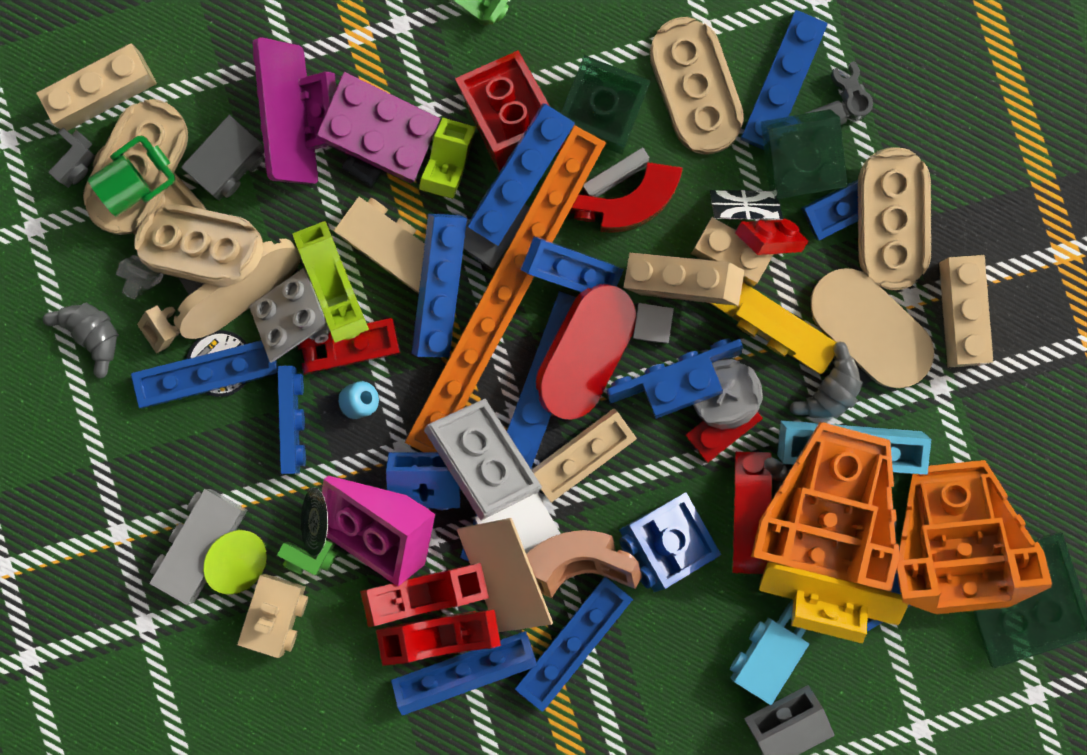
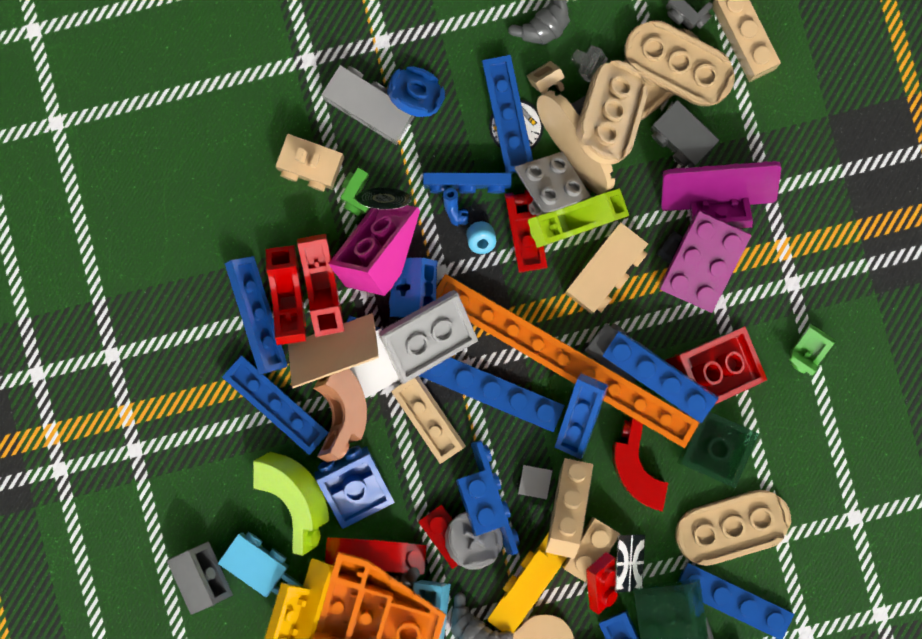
camera: 90 degrees right, 0 degrees up
(121, 184) = (663, 52): green piece -> none
(180, 487) = (415, 91): none -> blue tile
(234, 562) = (354, 133): lime sticker -> none
(321, 438) = (450, 200): none -> blue arm
(439, 285) = (572, 306): blue plate -> none
(447, 158) = (678, 318): lime slope -> none
(586, 351) = (513, 425): tile -> none
(616, 174) = (659, 456): light grey tile -> none
(679, 609) = (300, 494): none -> lime arch

